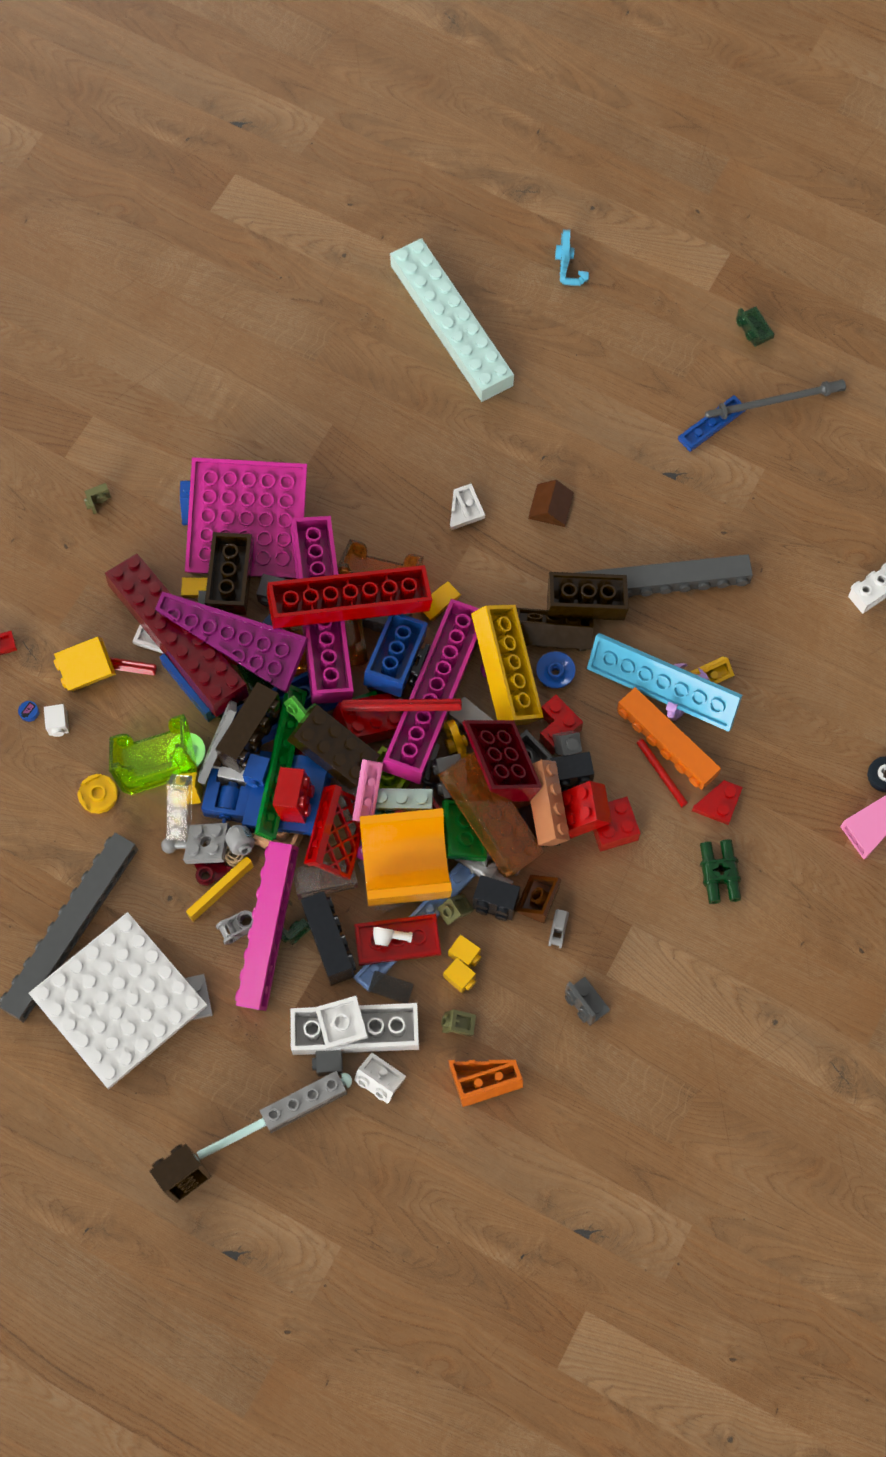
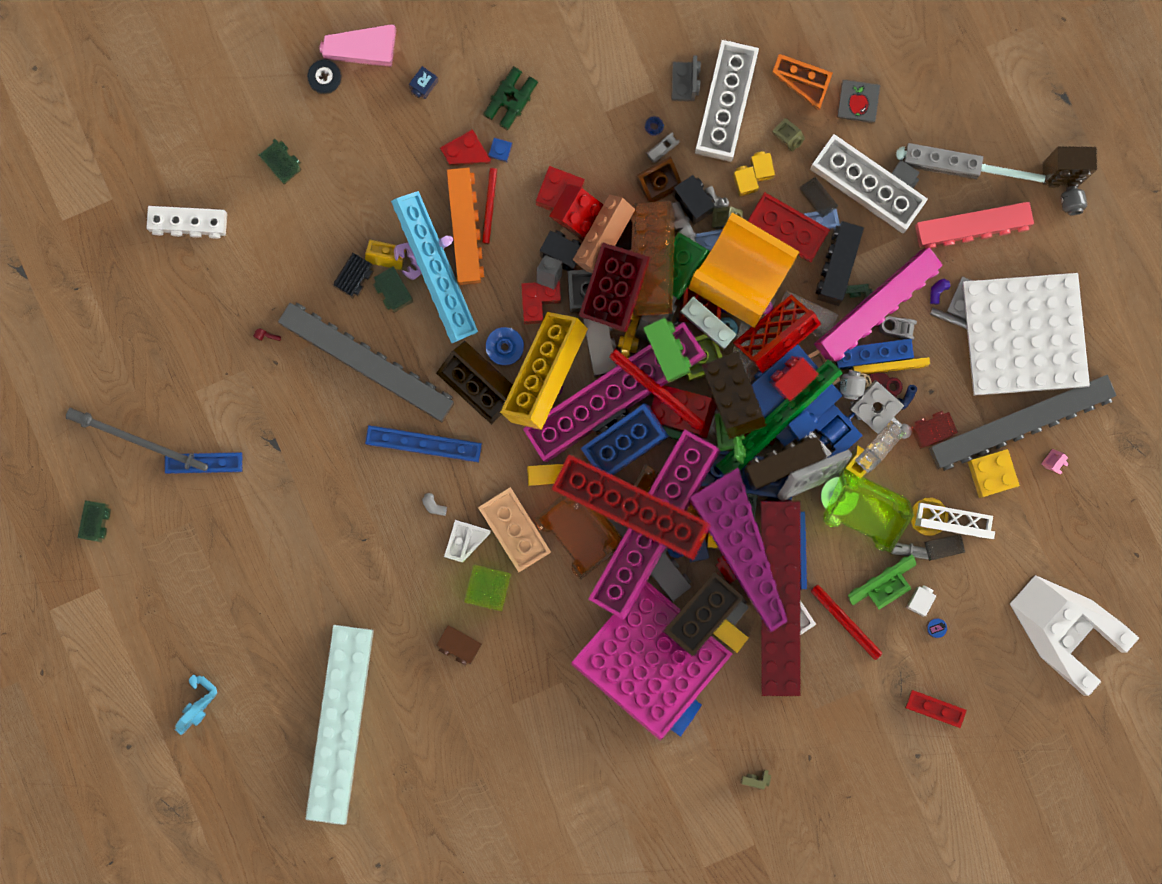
camera: 150 degrees left, 15 degrees up
(17, 914) = (1055, 461): none -> bright pink tile
(64, 863) = (993, 473): none -> yellow brick
(66, 776) = (944, 547): none -> clear smoke tile
(66, 795) = (956, 528): none -> white fence
(84, 664) = (869, 629): yellow brick -> none
(92, 754) = (907, 550): none -> light grey axle
(93, 709) = (886, 586): none -> bright green bracket
(143, 864) = (934, 430): none -> clear red brick
(154, 1152) = (1073, 201): none -> dark grey head
(185, 873) = (909, 396): none -> dark blue arm
(200, 969) = (949, 318): none -> flat silver bar
(226, 986) = (938, 288): none -> dark purple arm
(233, 1067) = (974, 224): none -> coral brick
(237, 890) = (877, 353): none -> blue brick
(341, 1022) = (878, 188): white plate -> none
(367, 789) = (732, 343): bright pink tile -> none
(379, 1077) = (875, 138): white bracket -> none
(383, 936) = (797, 233): white bar -> none
(407, 432) = (458, 644): none -> reddish brown brick
(417, 483) = (487, 588): none -> clear neon green brick
(417, 738) = (668, 349): none -> bright green brick
(420, 1102) = (858, 101): none -> dark grey tile
(433, 541) = (514, 530): none -> light nougat plate
(476, 918) = (719, 202): none -> light grey arm
(510, 514) = (432, 507): none -> light grey arm
(536, 1007) = (726, 100): none -> white brick
(551, 503) = (393, 491): reddish brown slope -> none
(557, 555) = (423, 443): none -> blue tile
(581, 936) = (656, 120): none -> clear blue plate
(587, 596) = (434, 381): dark brown slope -> none
(681, 647) = (393, 289): none -> clear green brick
(692, 824) = (500, 149): none -> blue plate
(722, 635) = (353, 275): none -> black brick
(754, 544) = (260, 333): none -> dark red hand
(802, 828) = (423, 83): none -> dark blue brick
(858, 679) = (280, 162): none -> clear green bracket

